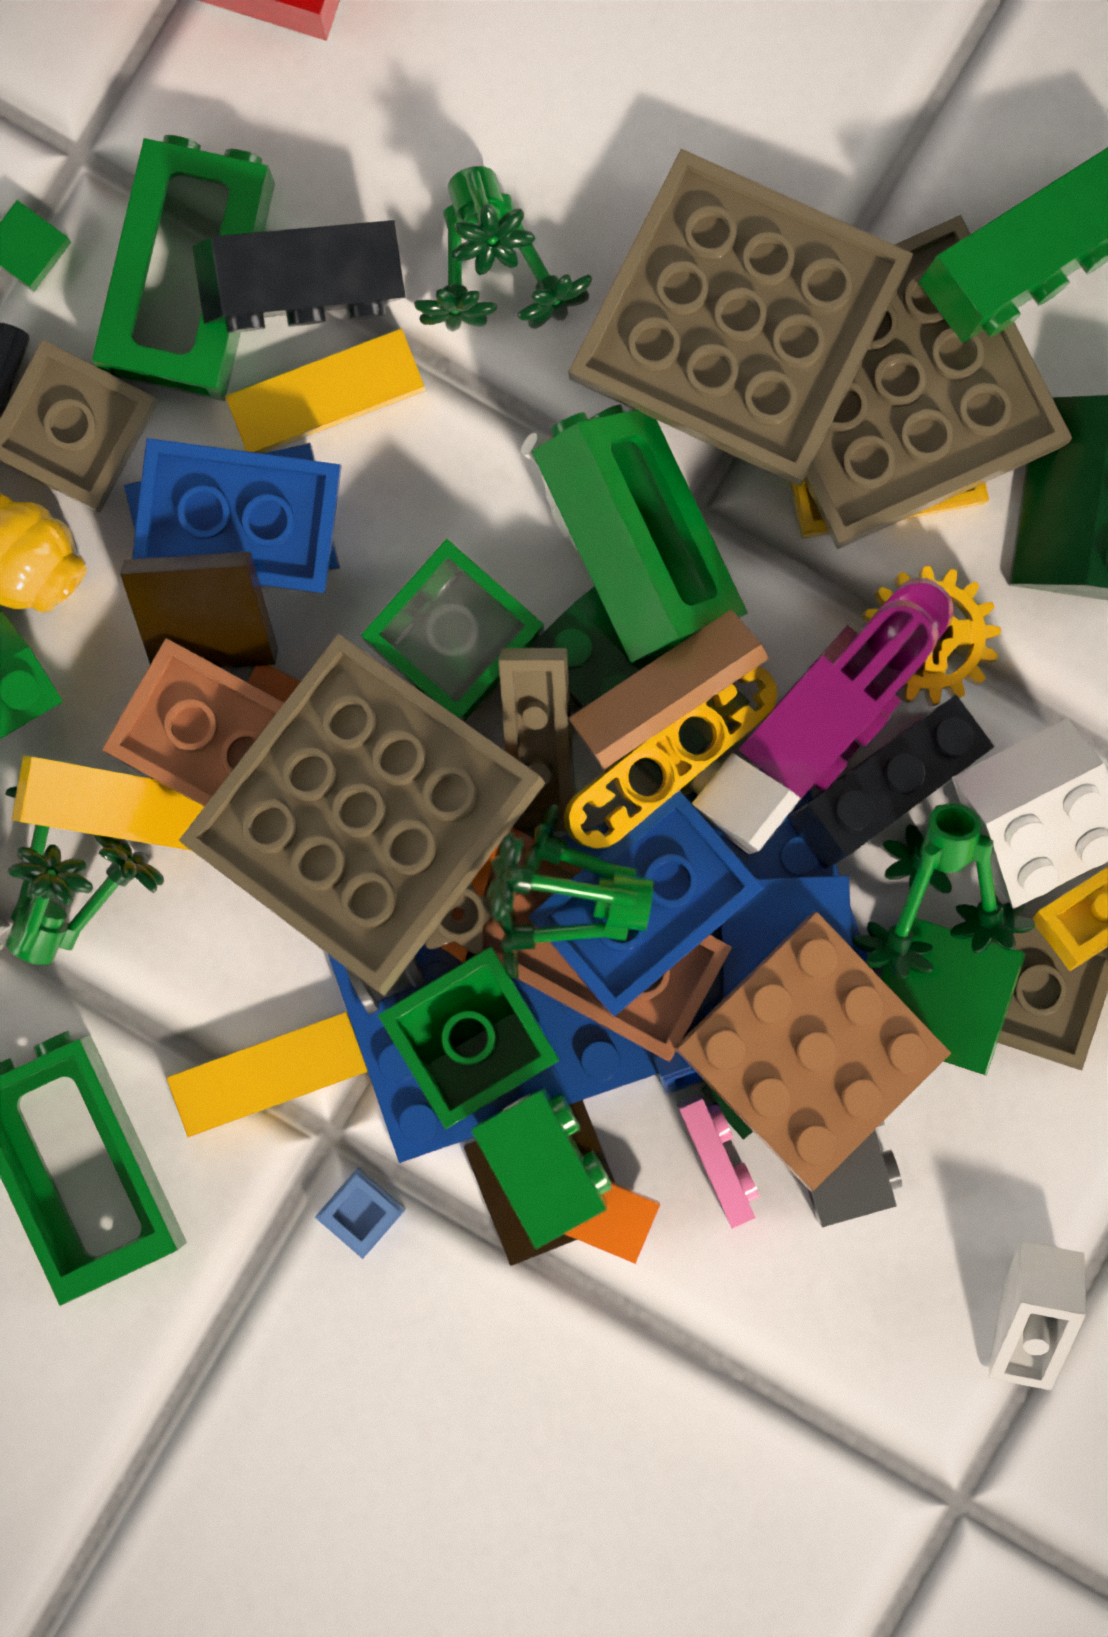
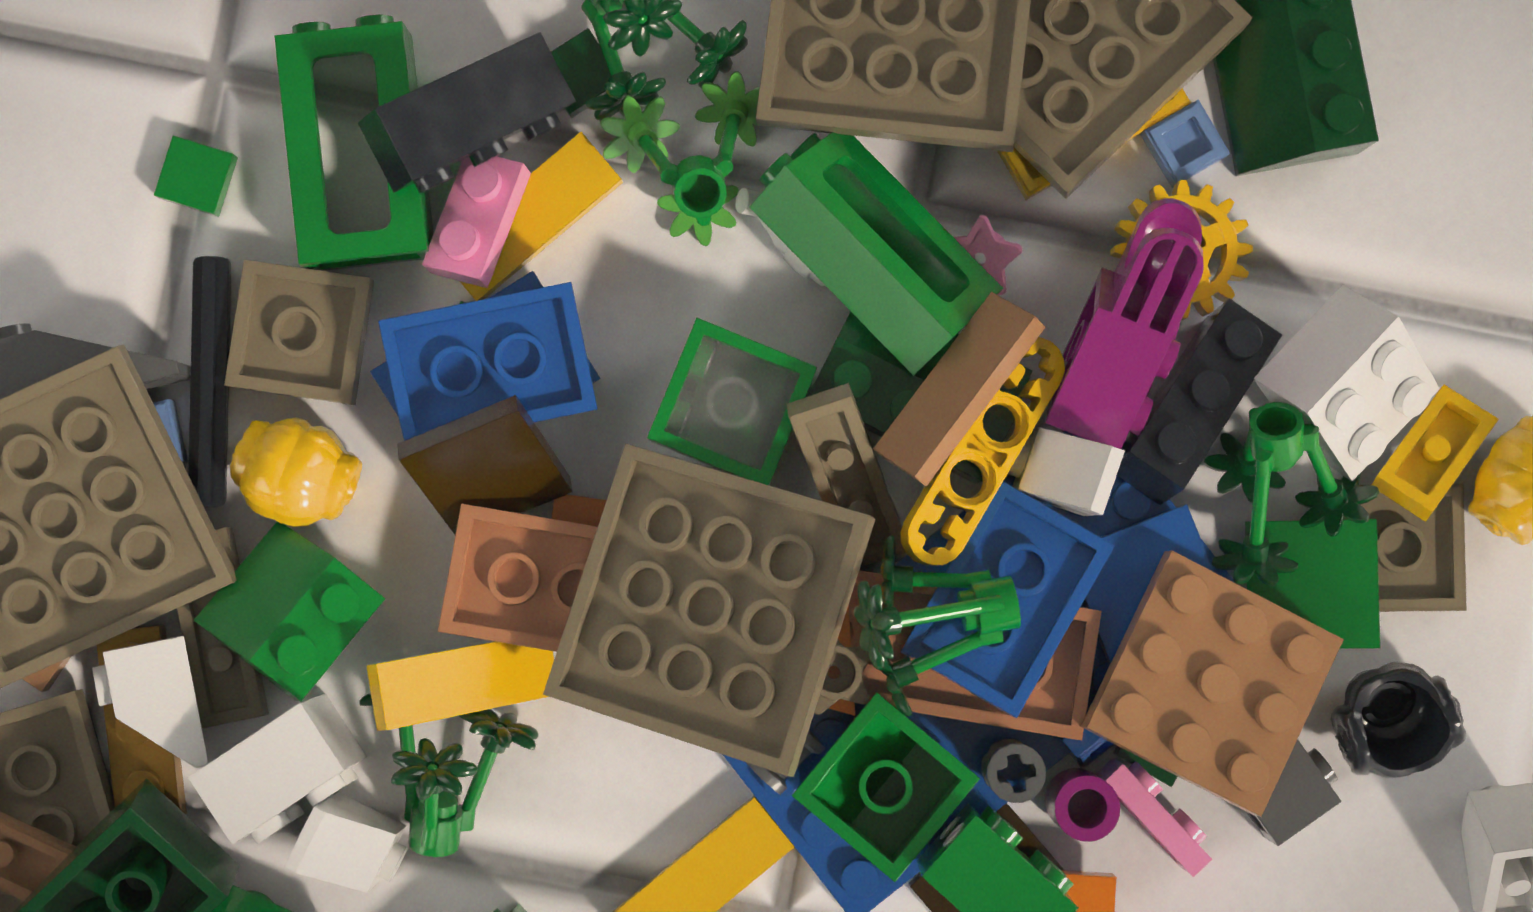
camera: 25 degrees left, 0 degrees up
(273, 378) = (476, 220): none -> bright pink plate
(423, 269) = (583, 69): none -> dark green tile
(491, 408) = (697, 180): none -> bright green plant
(608, 1083) = (1030, 780): none -> dark grey bush
(651, 1124) = (1082, 804): none -> magenta brick
(753, 572) = (994, 247): none -> bright pink plate
(970, 537) = (1185, 143): none -> medium blue tile
(977, 1150) = (1397, 721): none -> black hair

